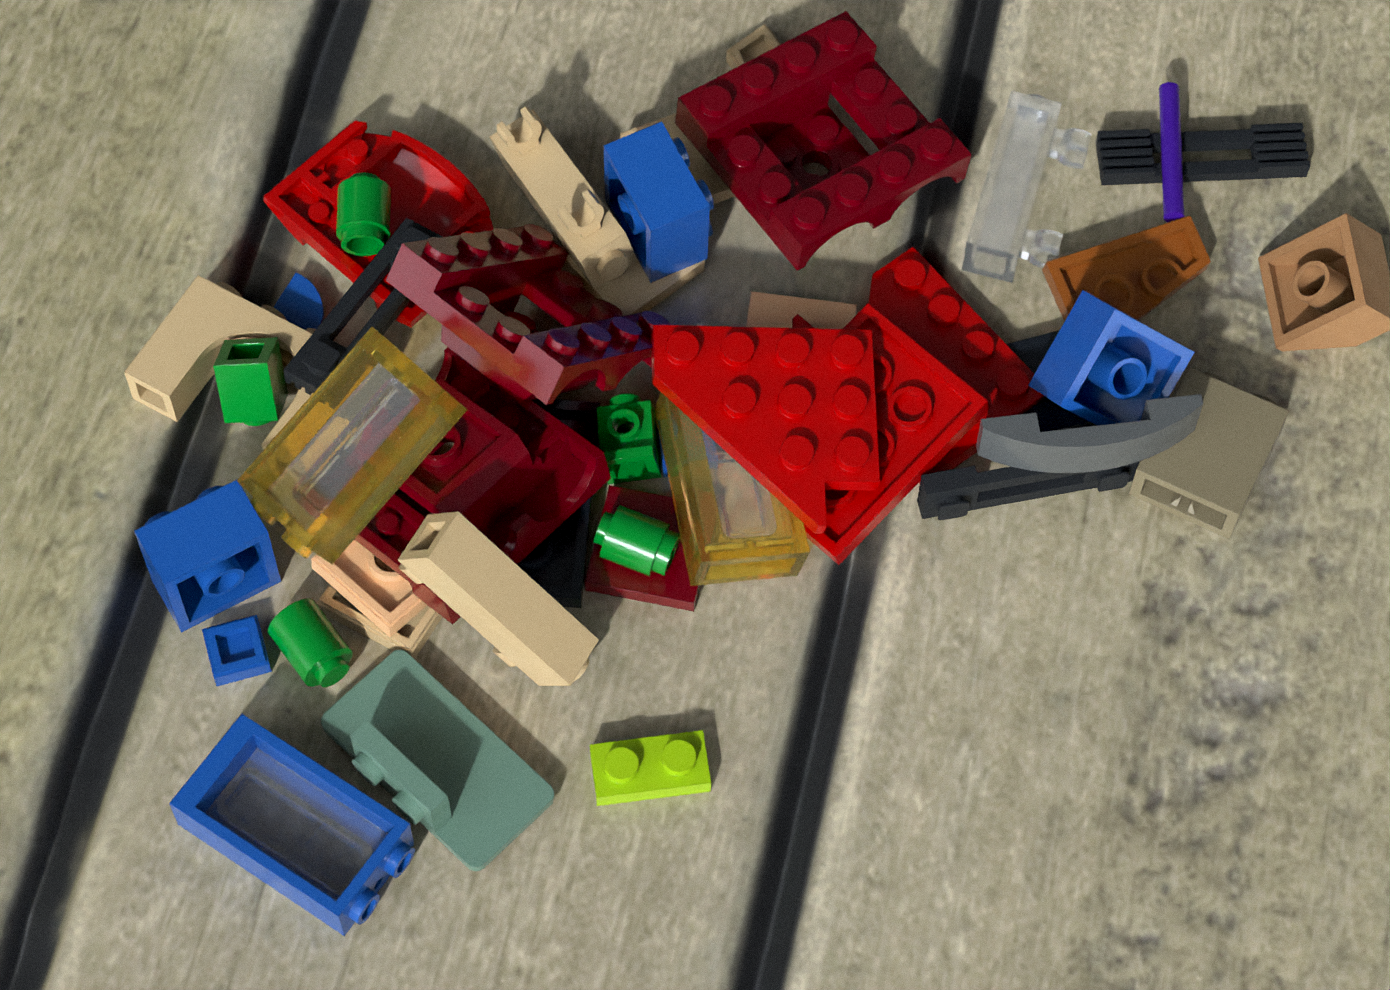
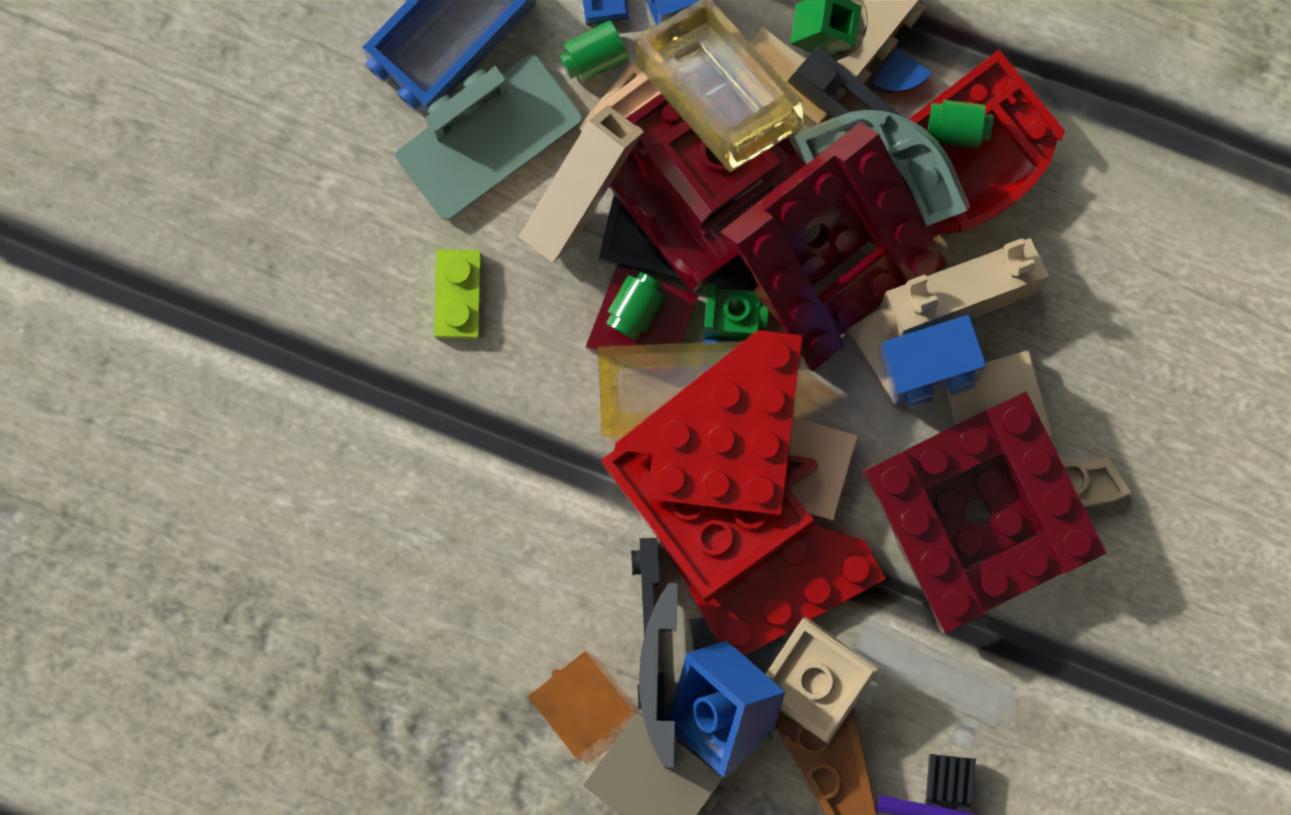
camera: 100 degrees right, 20 degrees up
(436, 214) = (913, 151): none -> sand green plate
(1044, 281) = (820, 679): none -> tan tile
(1134, 554) = (580, 704): none -> clear orange piece

